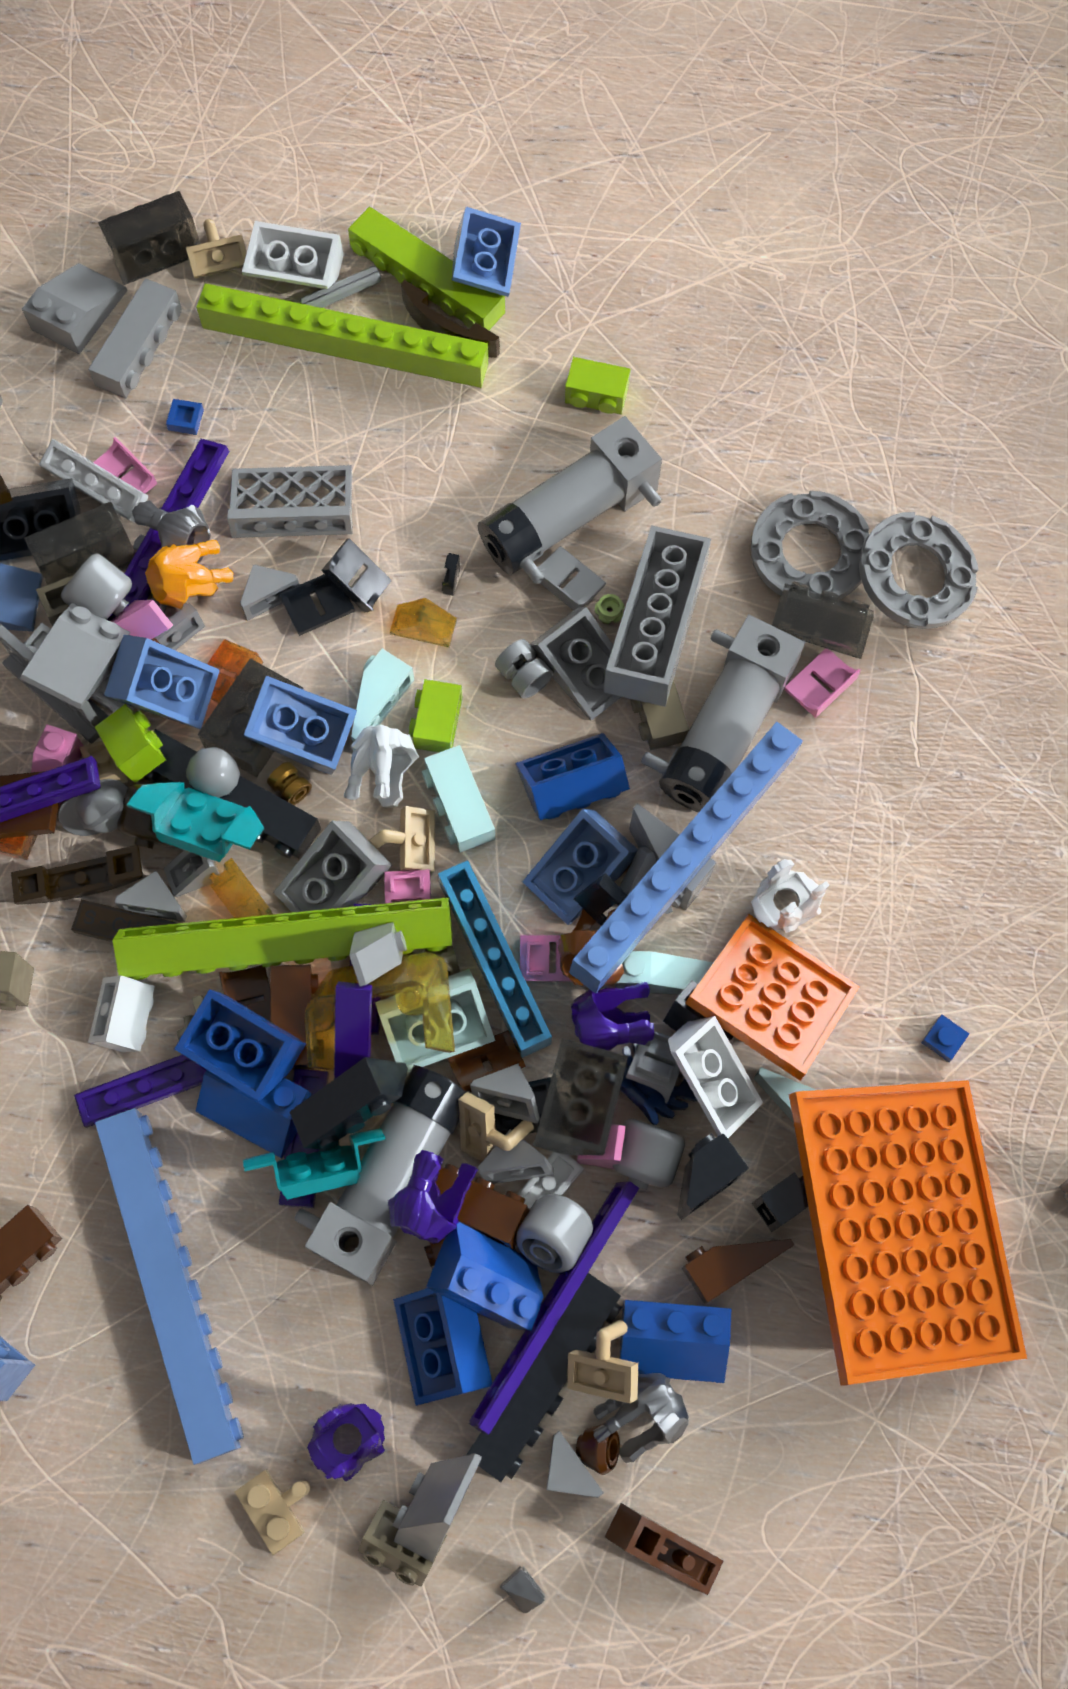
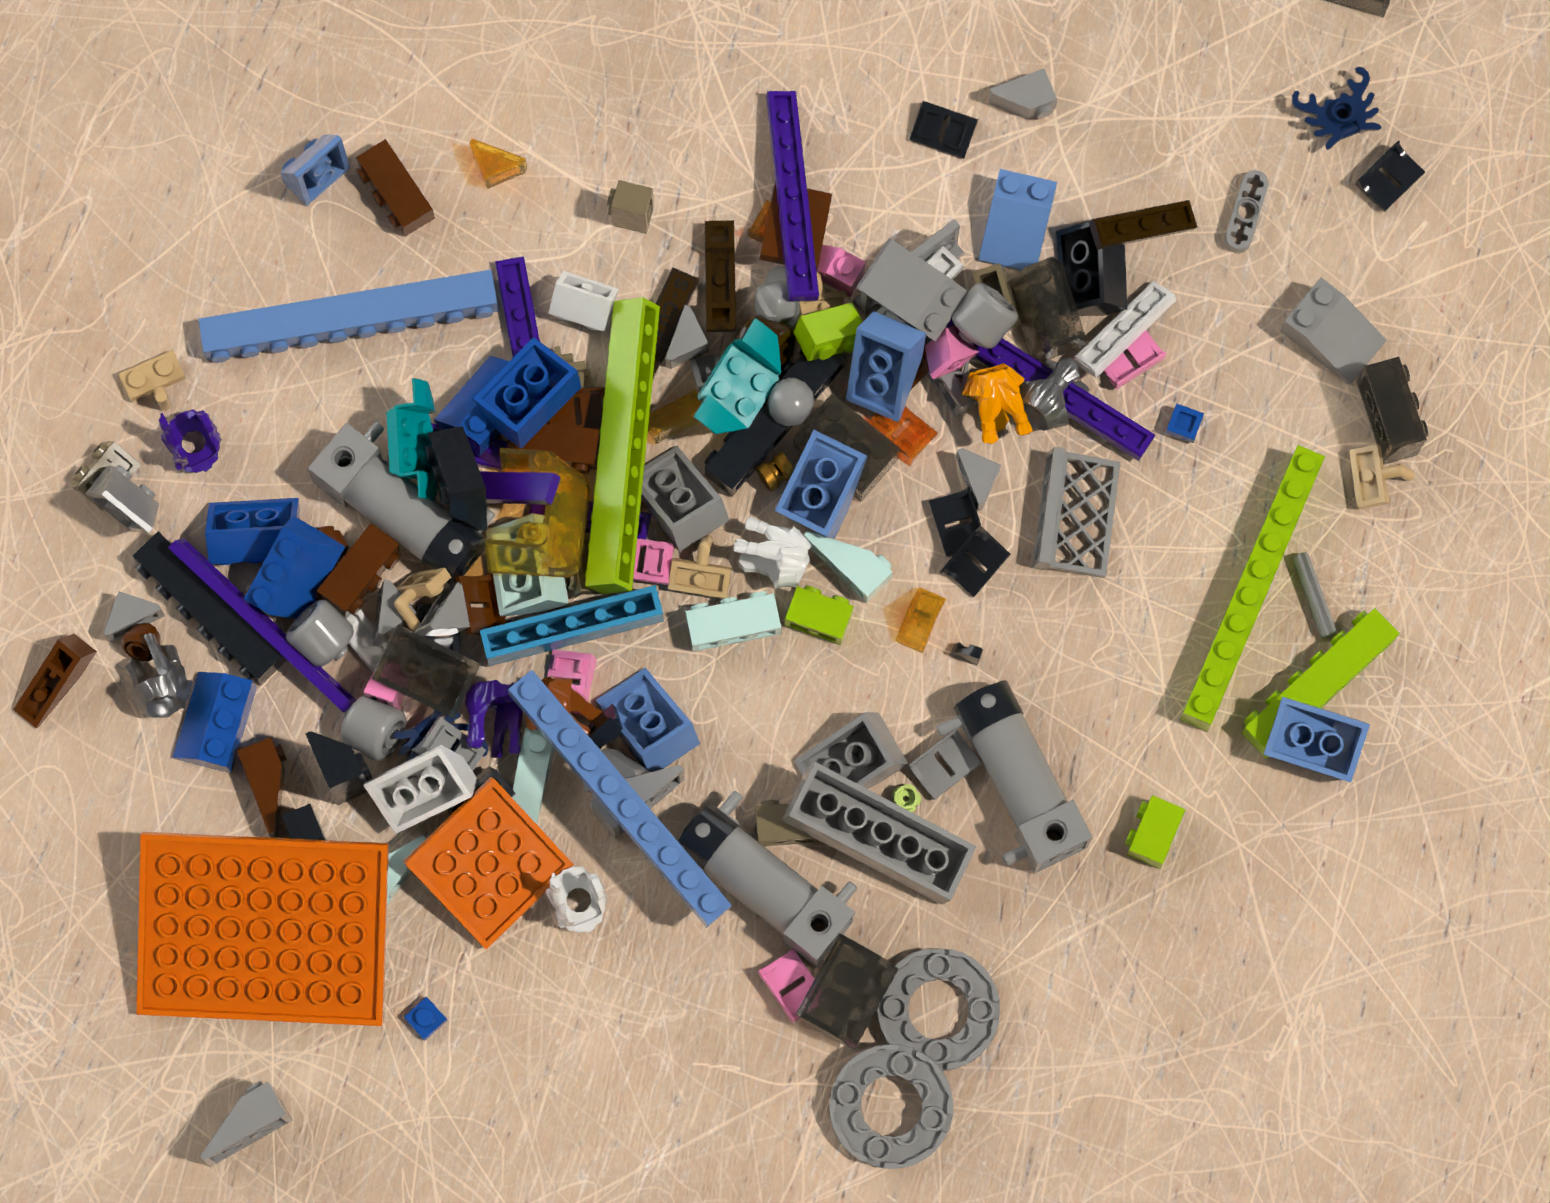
camera: 100 degrees right, 5 degrees up
(135, 338) = (1281, 385): light grey brick -> none
(293, 255) = (1345, 548): white slope -> none
(376, 952) = (584, 514): light grey slope -> none
(420, 1206) = (355, 521): dark purple piece -> none
(428, 319) = (1277, 668): dark brown slope -> none
(520, 665) = (841, 701): light grey wheel -> none
(523, 1590) = (50, 564): flat silver slope -> none
(573, 776) = (737, 729): blue slope -> none
(602, 1374) = (196, 644): tan plate -> none

